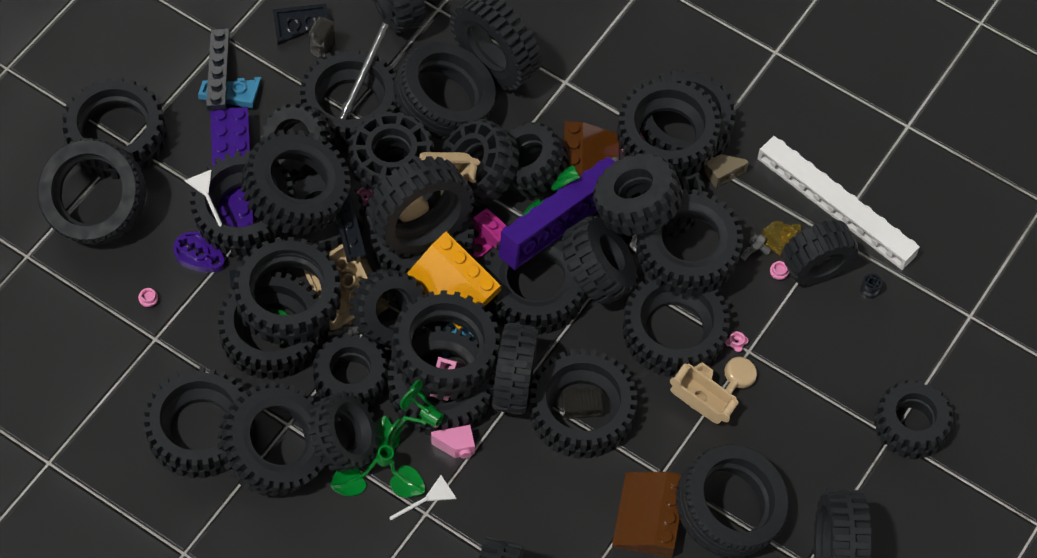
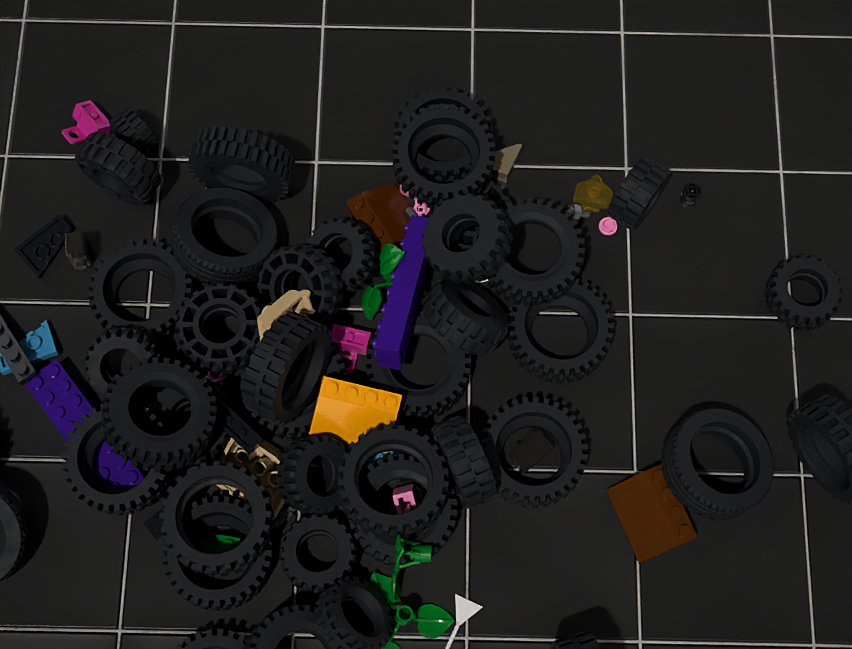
camera: 30 degrees left, 10 degrees up
(148, 297) = (87, 596): bright pink plate -> none
(190, 259) = (101, 535): dark purple piece -> none
(202, 184) = (70, 466): white piece -> none
(348, 105) = (145, 301): dark grey bar -> none
(455, 441) = (450, 556): bright pink slope -> none
(704, 395) = (626, 379): tan piece -> none
(742, 340) = (621, 310): bright pink plate -> none
(838, 202) = (615, 135): white brick -> none

